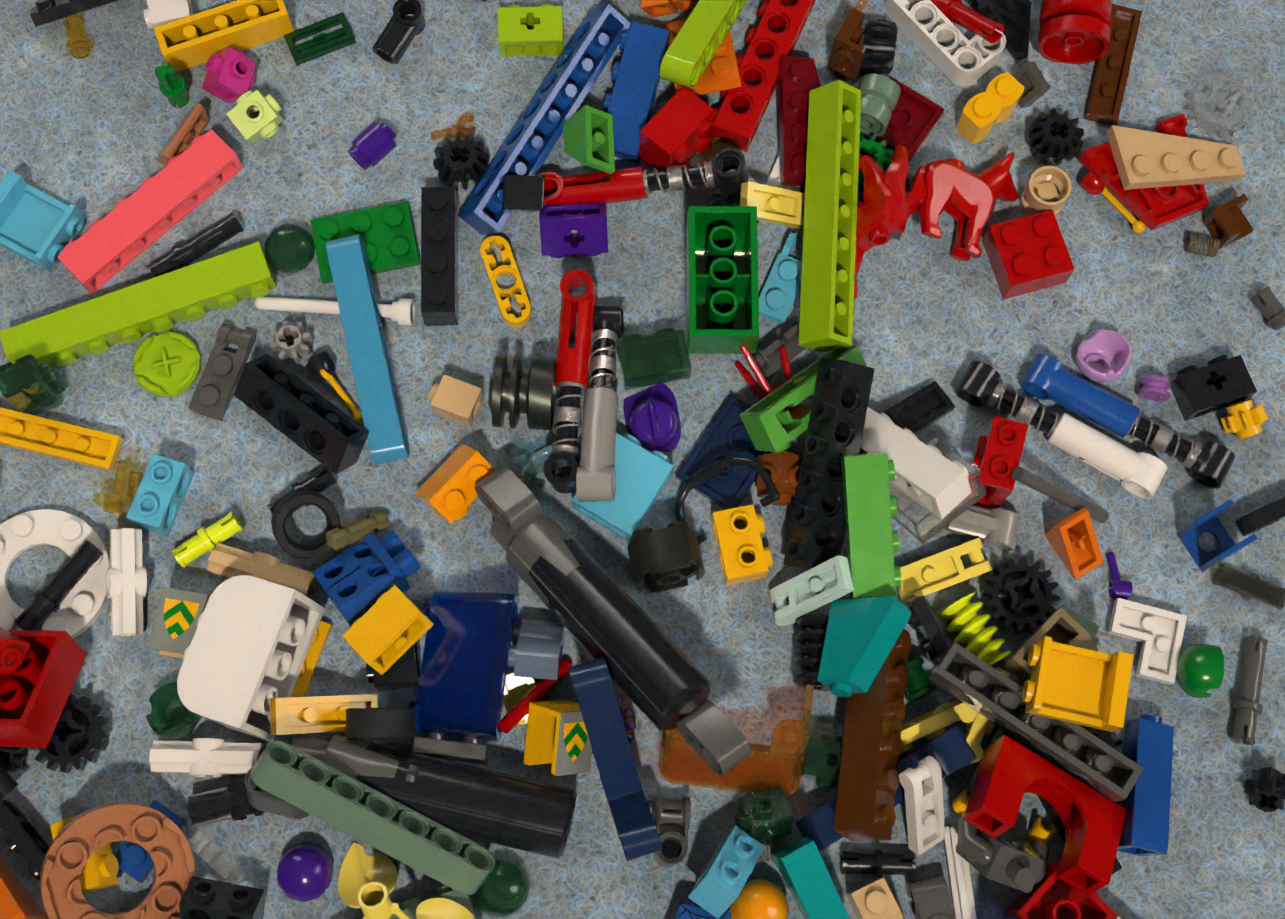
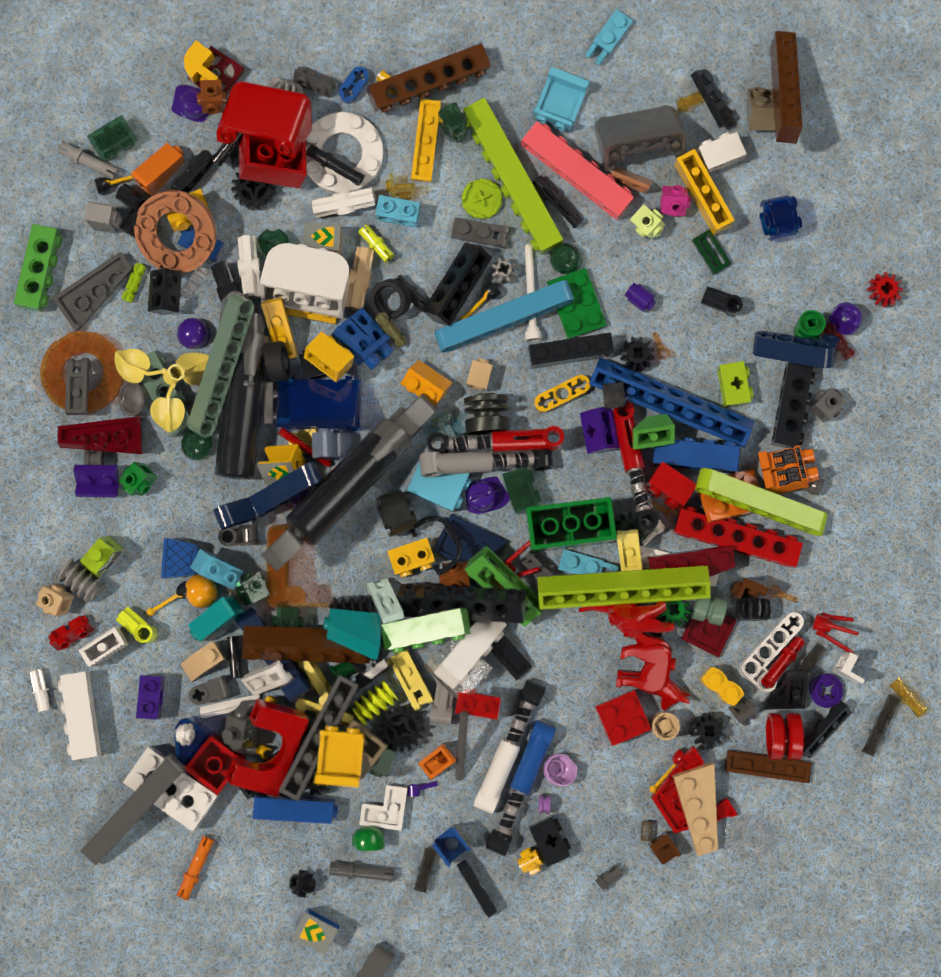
camera: 85 degrees right, 10 degrees up
(108, 107) = (639, 133): none -> dark grey windscreen
(172, 85) = (660, 167): green axle -> none

